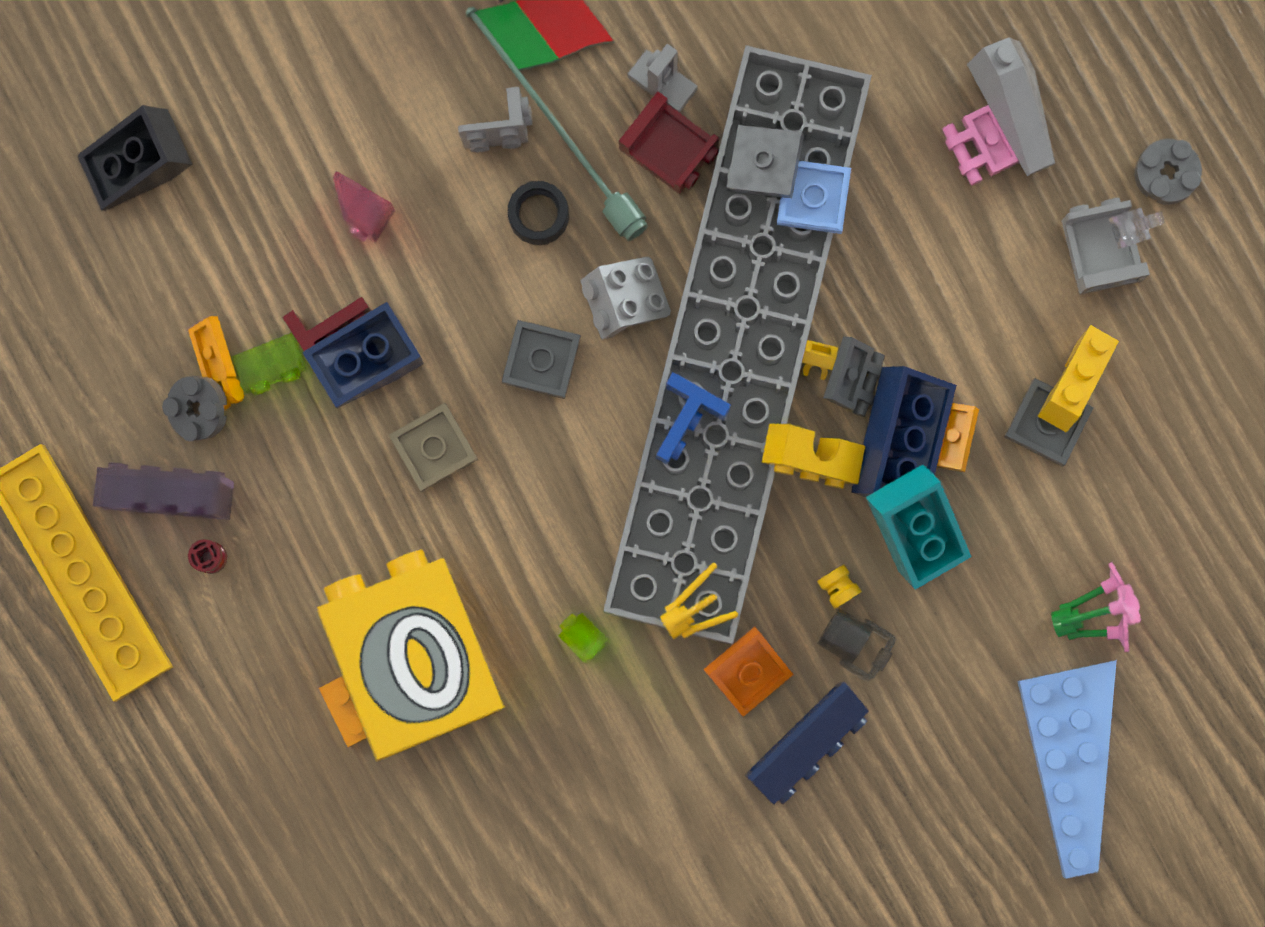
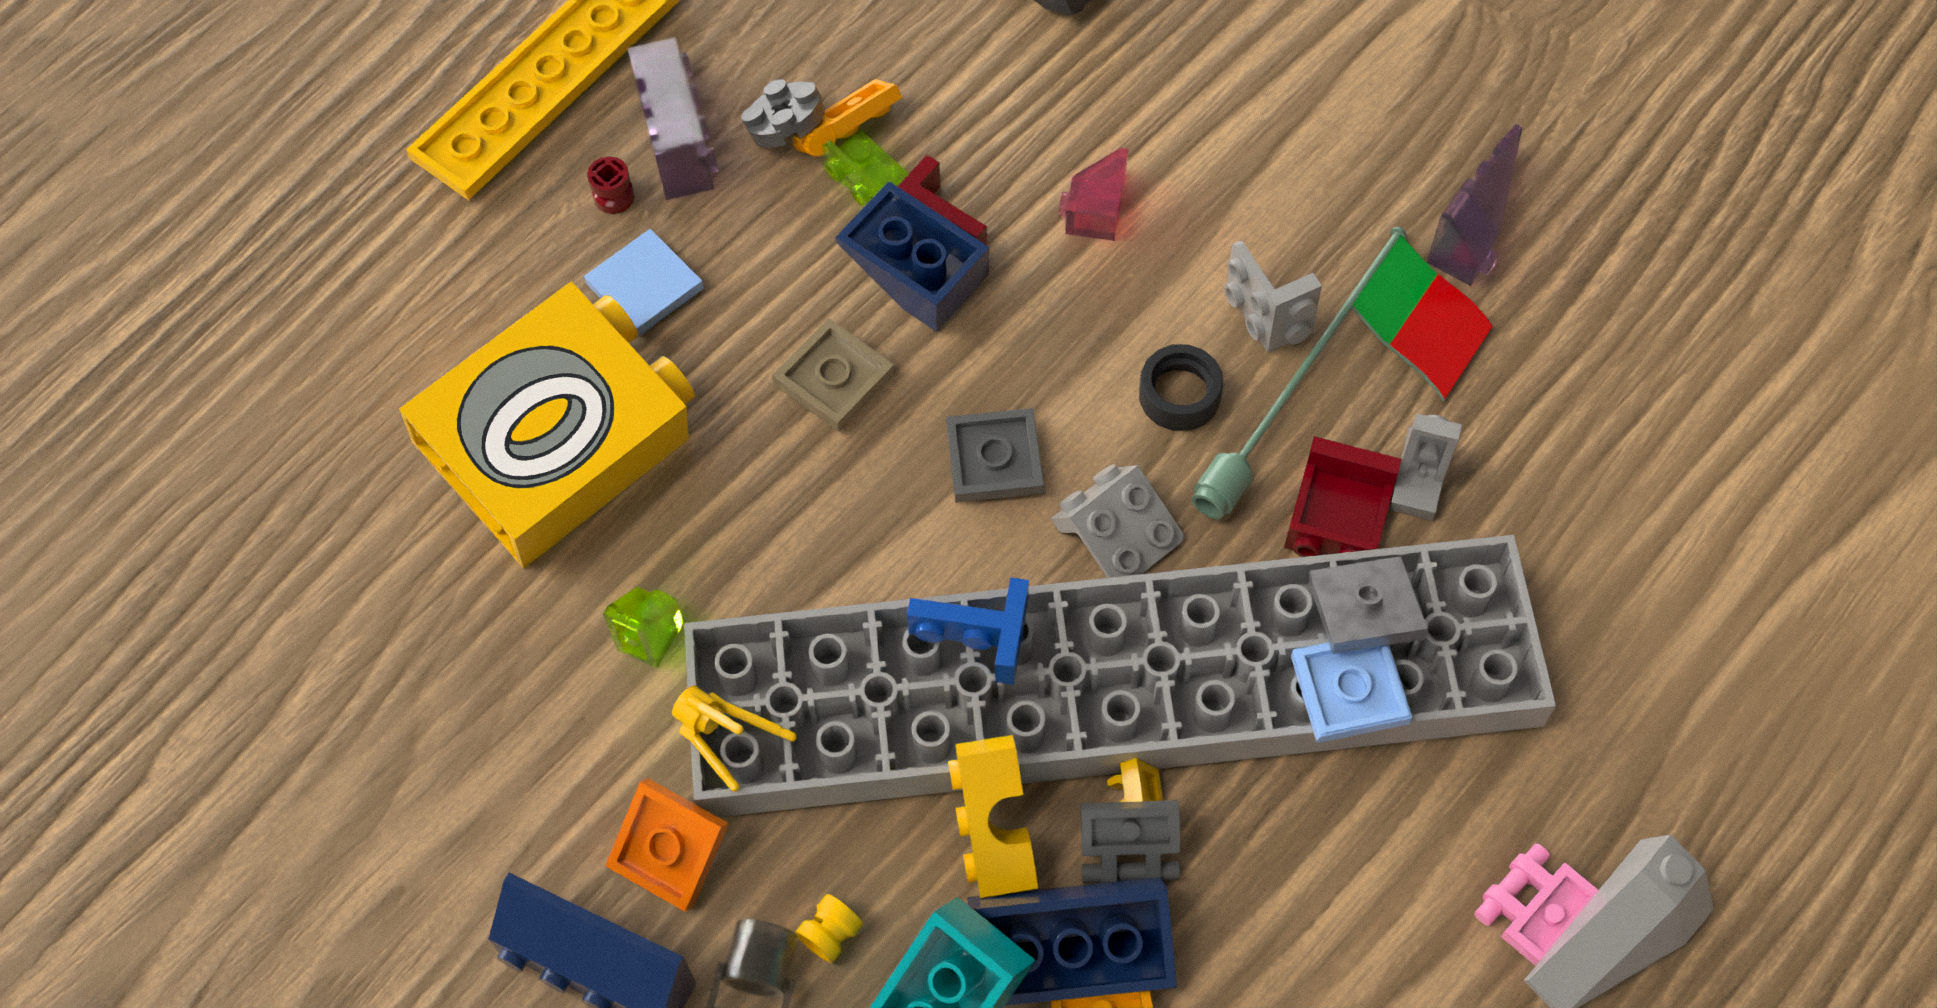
camera: 65 degrees right, 20 degrees down
(299, 558) = (645, 280): none -> light blue tile

